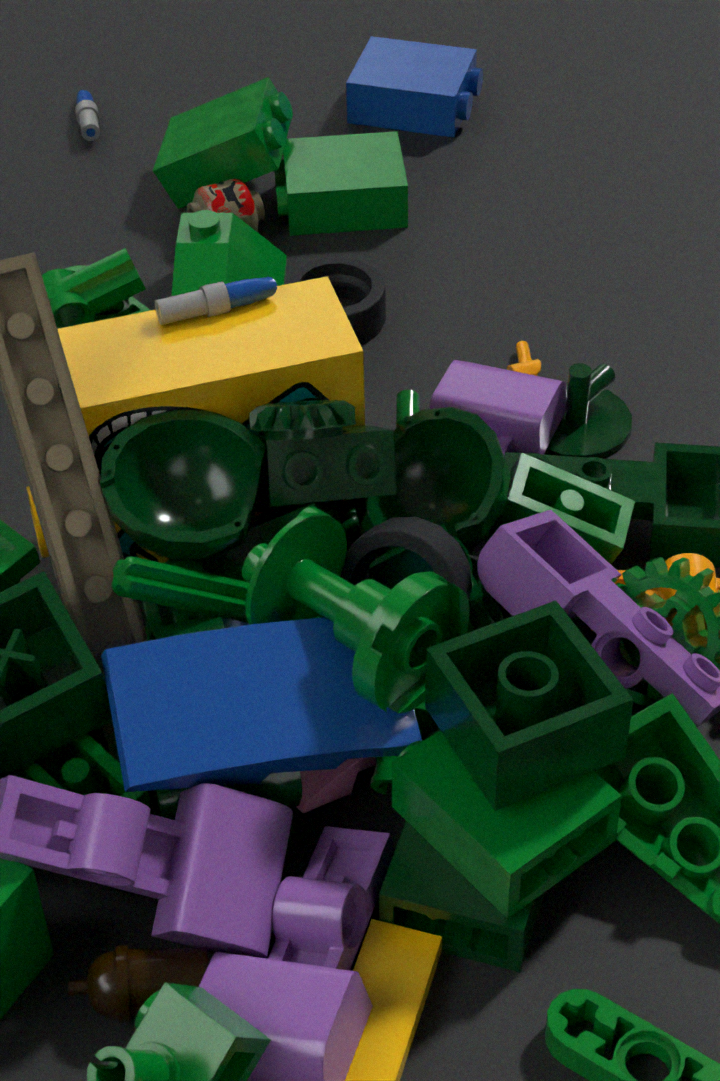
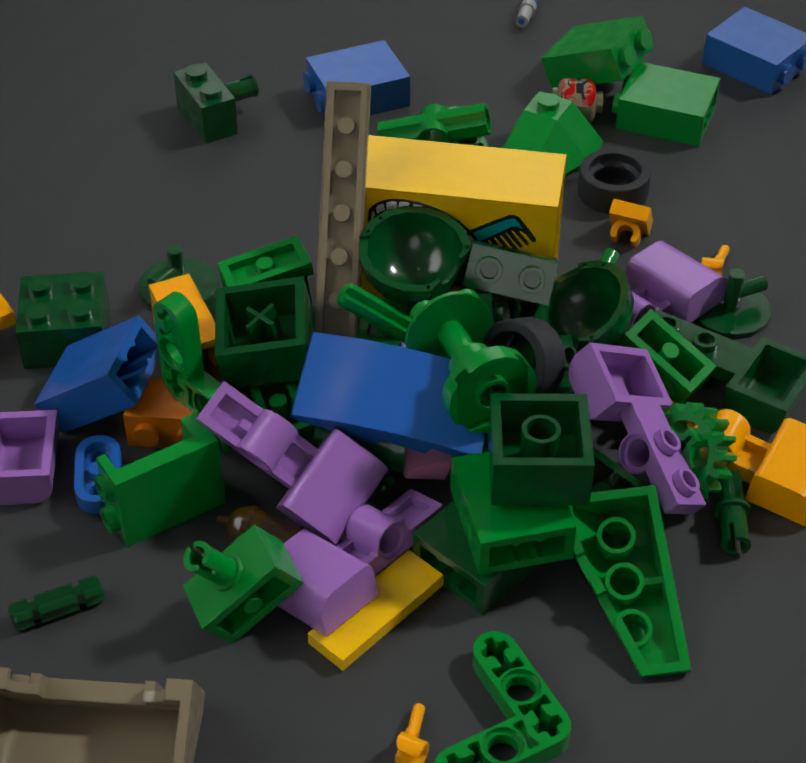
camera: 25 degrees right, 0 degrees up
(214, 299) = (485, 146): light grey piece -> none
(302, 419) = (501, 237): dark green gear -> none
(390, 343) = (631, 218): none -> light orange tile

